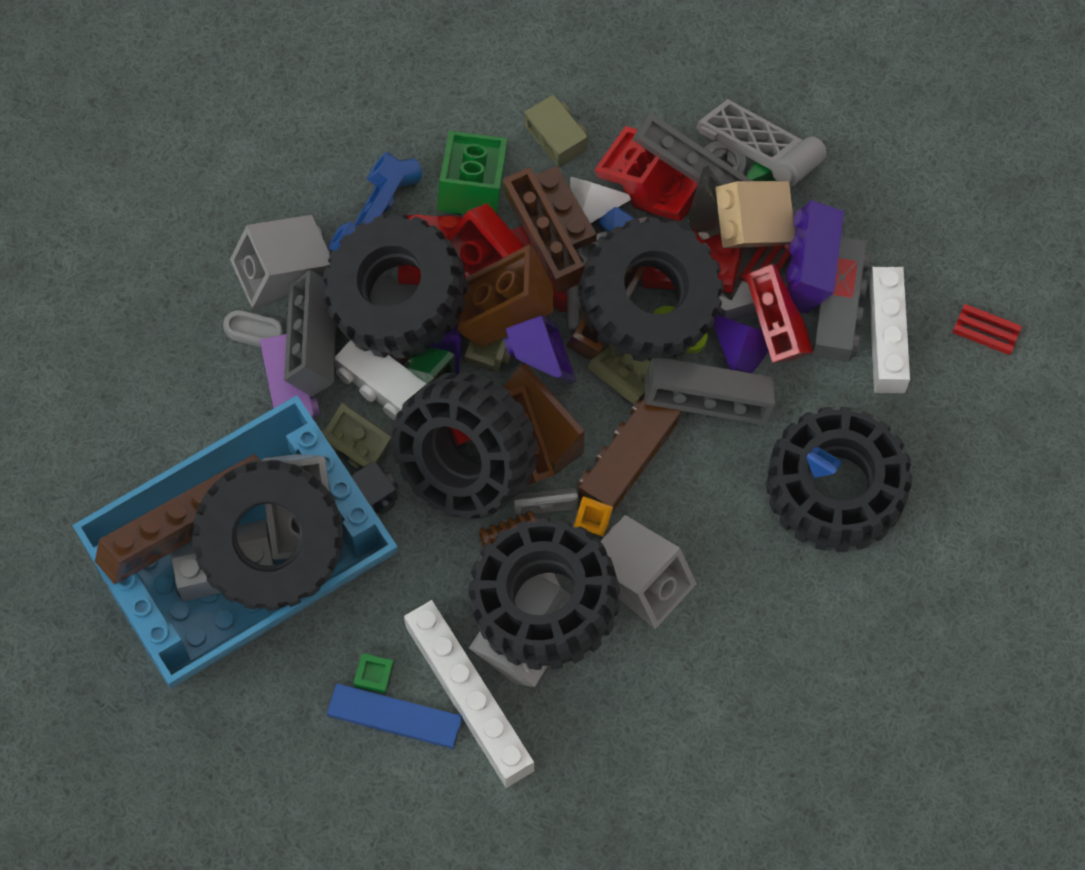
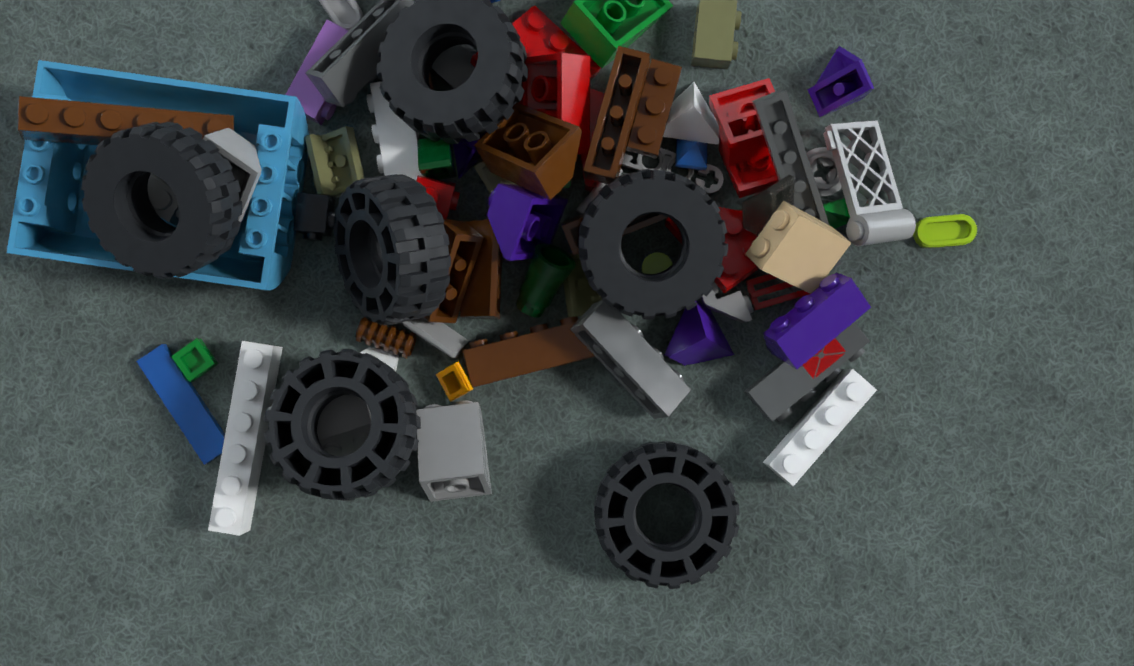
camera: 45 degrees right, 20 degrees up
(592, 390) = (544, 278): none -> dark green plant
(678, 93) = (841, 83): none -> dark purple slope
(778, 316) = (739, 346): red slope -> none
(822, 463) = (655, 503): blue slope -> none
(847, 133) = (945, 231): none -> lime tile
(991, 319) = (909, 512): red tile -> none

